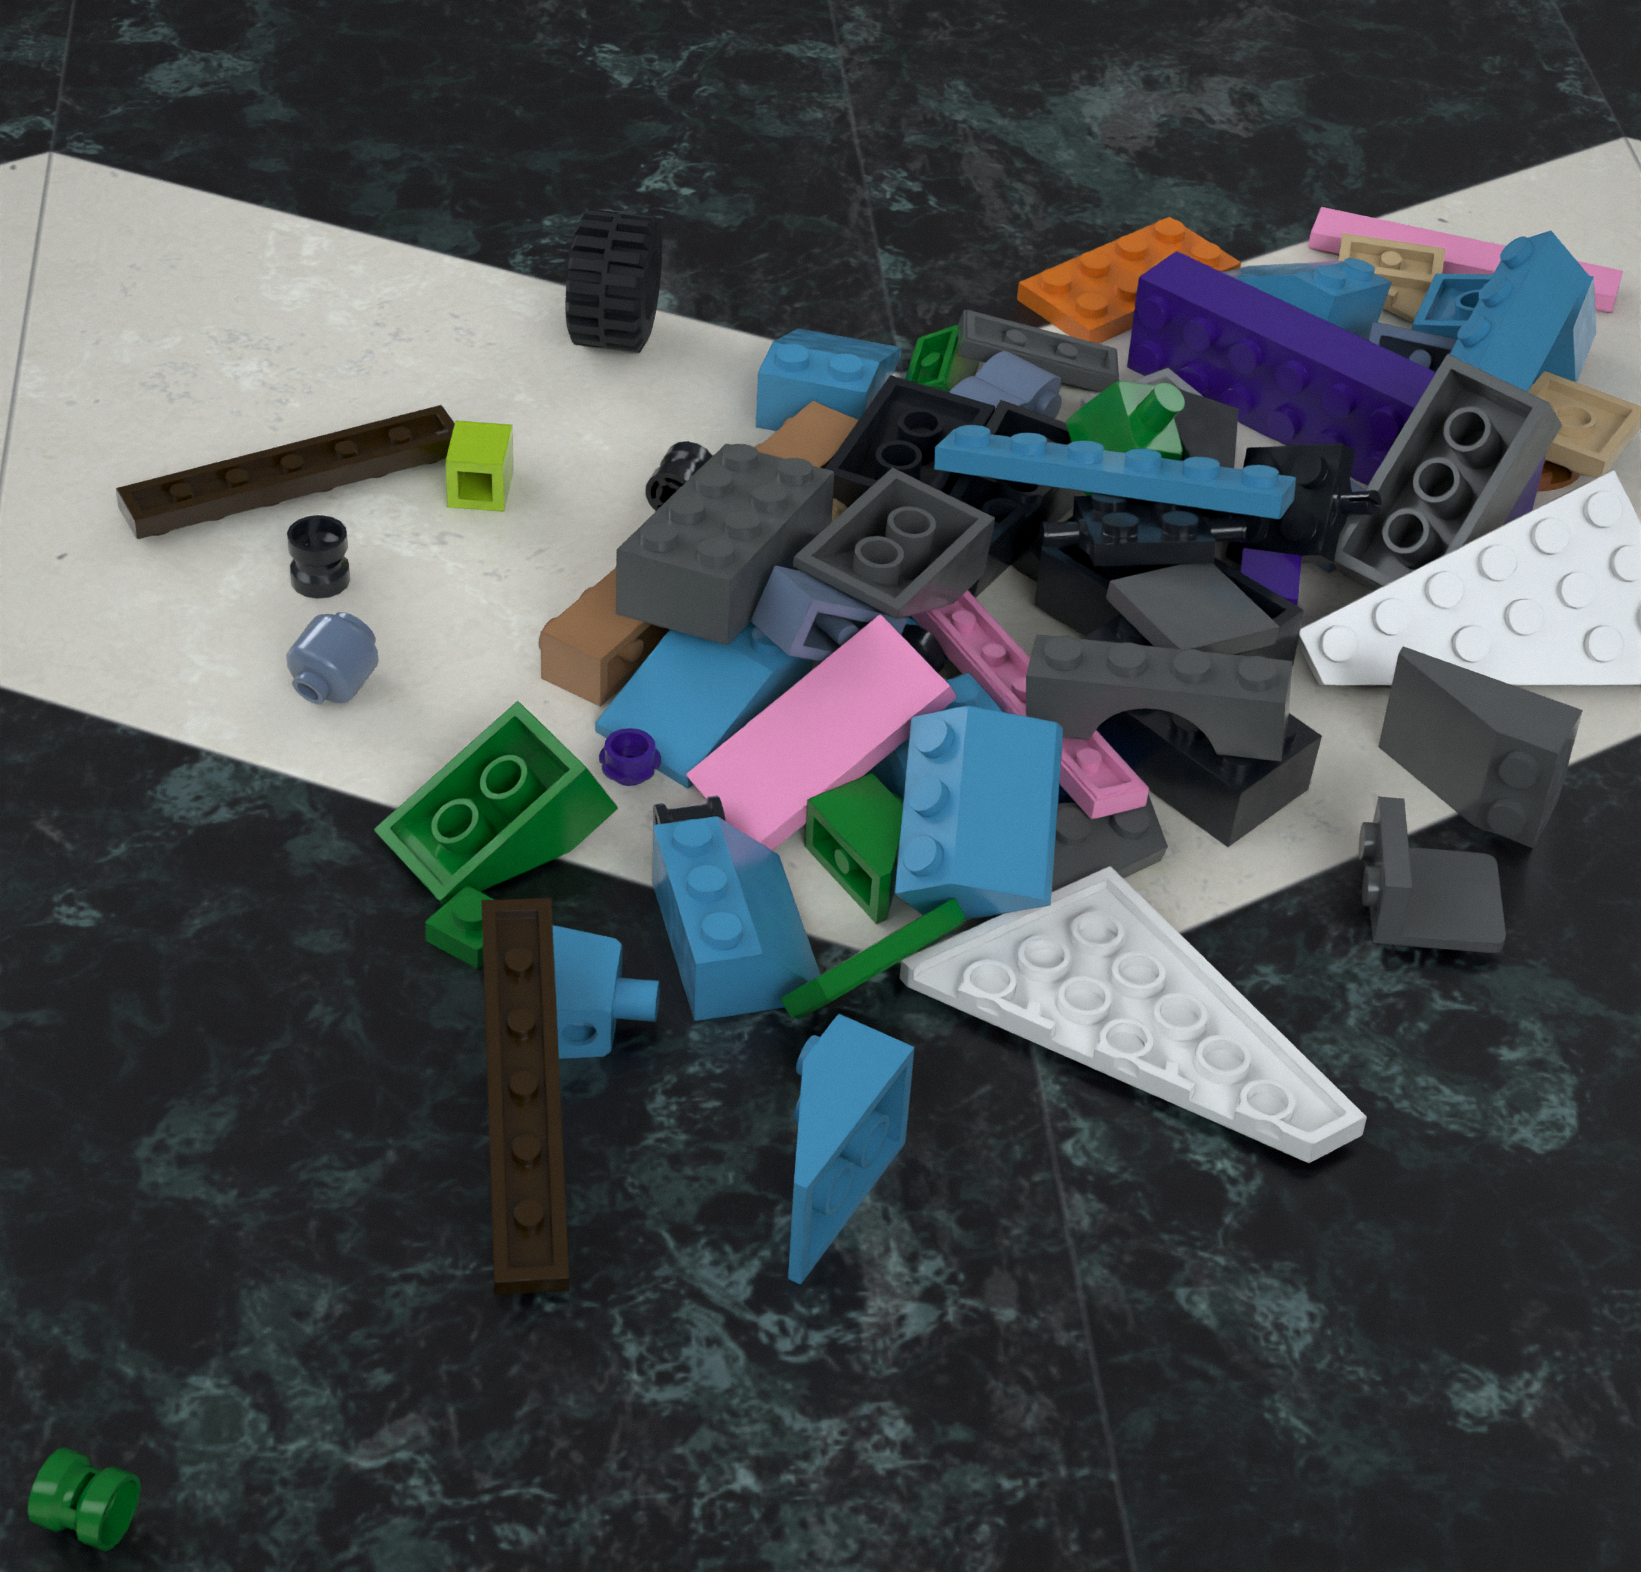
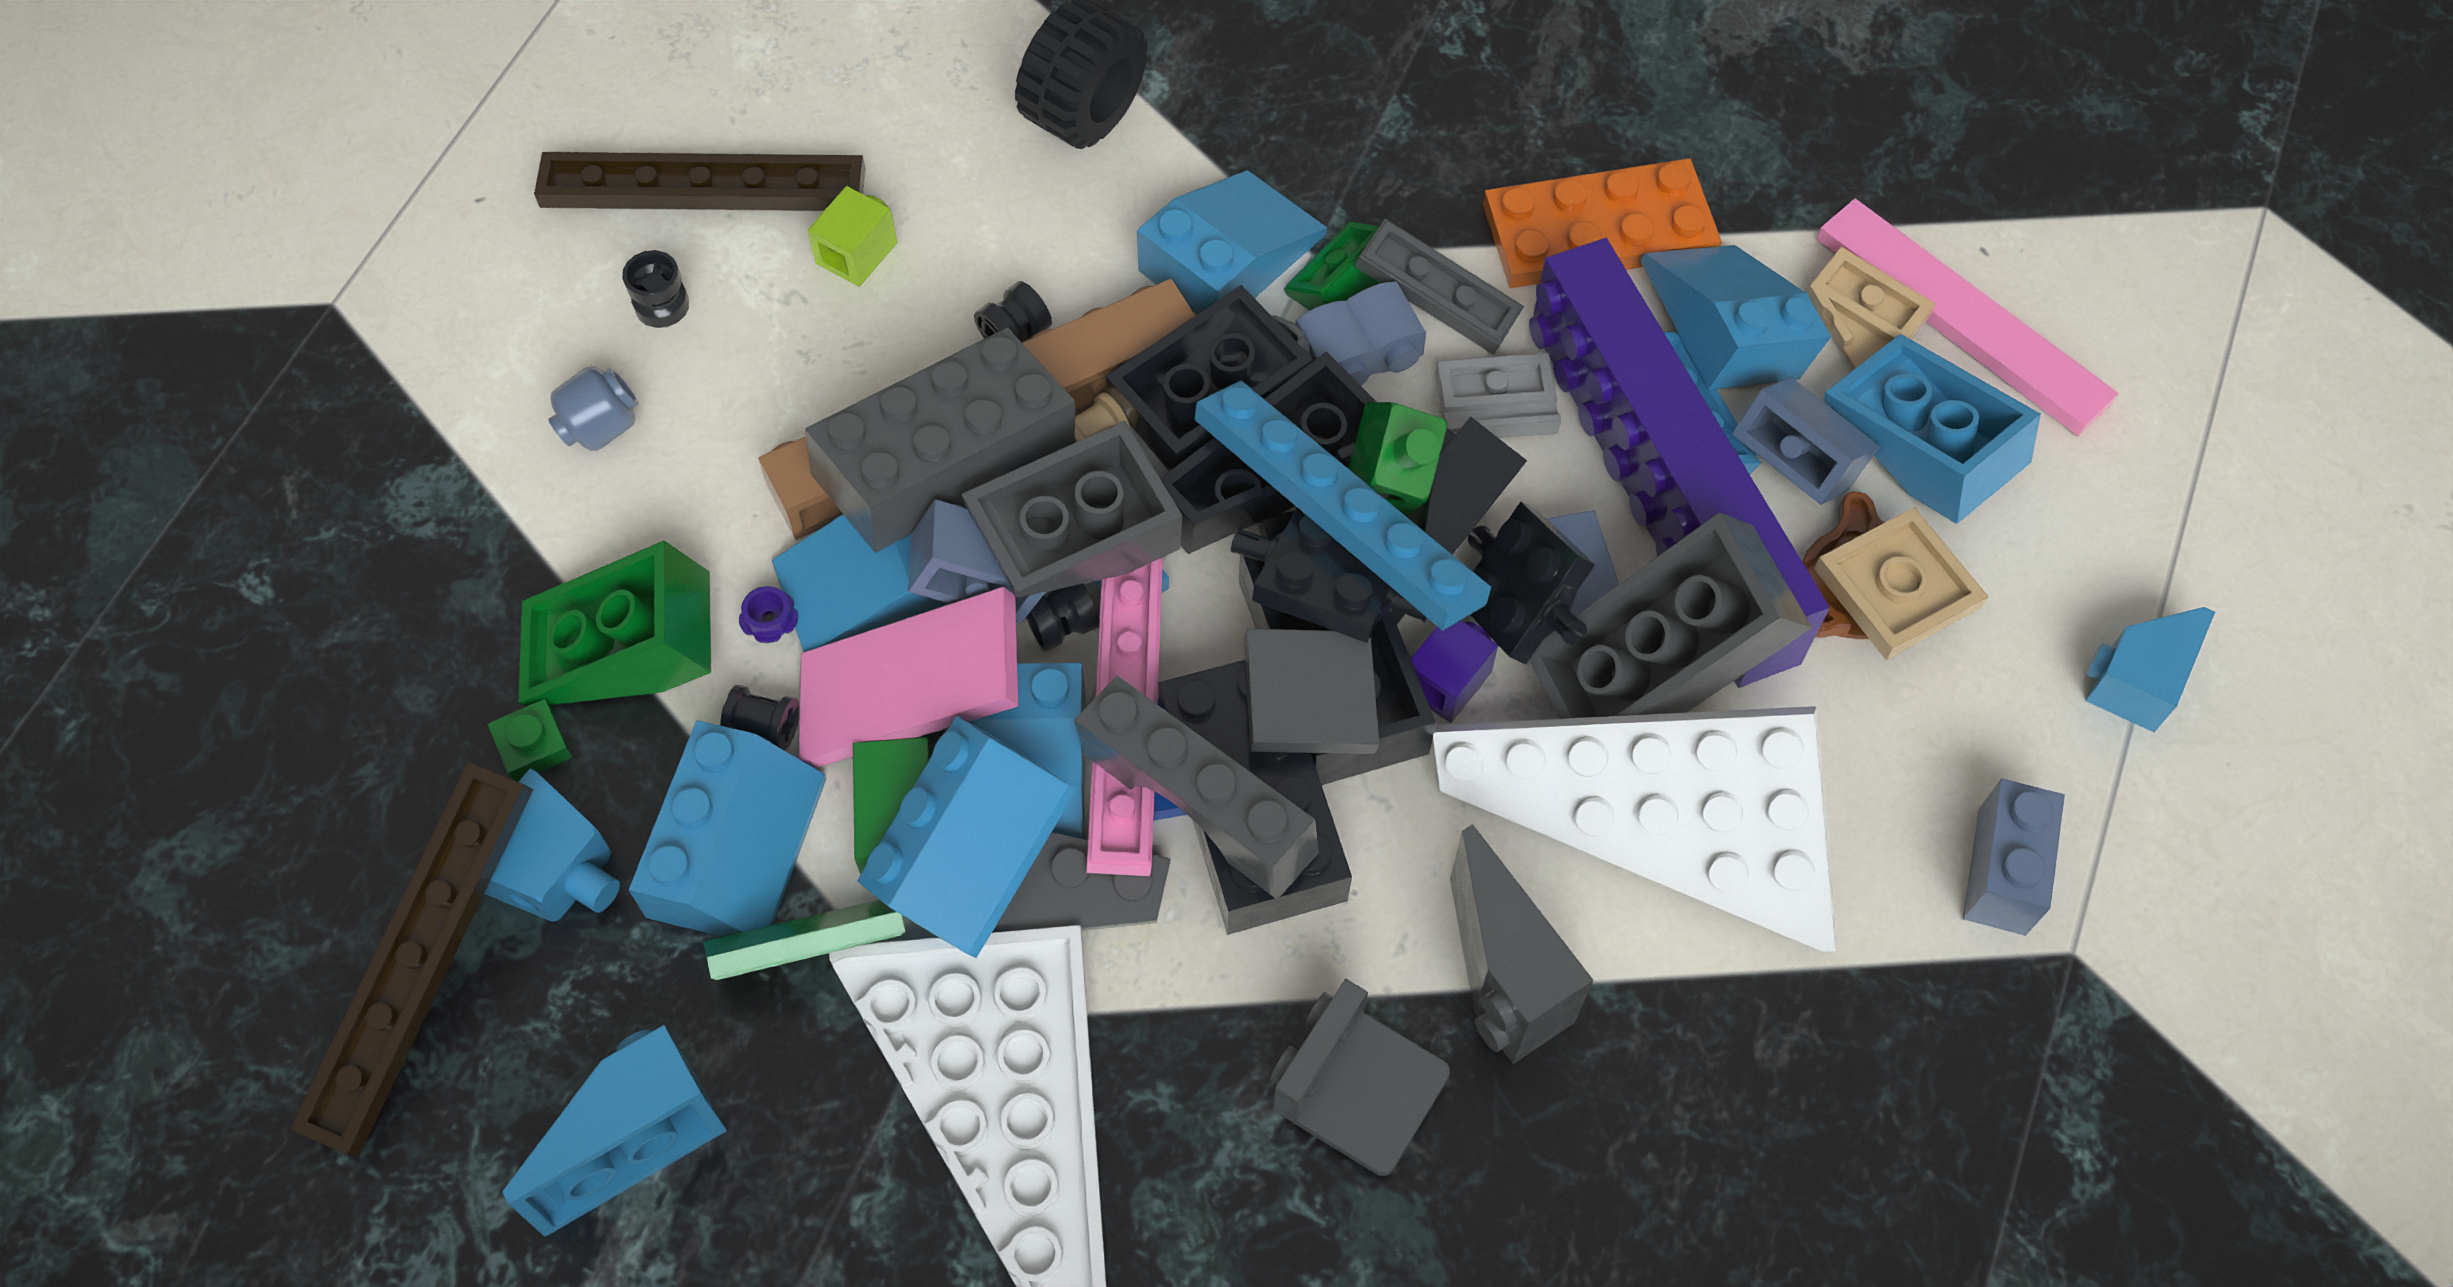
camera: 30 degrees right, 20 degrees up
(1521, 309) = (1882, 463): dark azure brick -> none

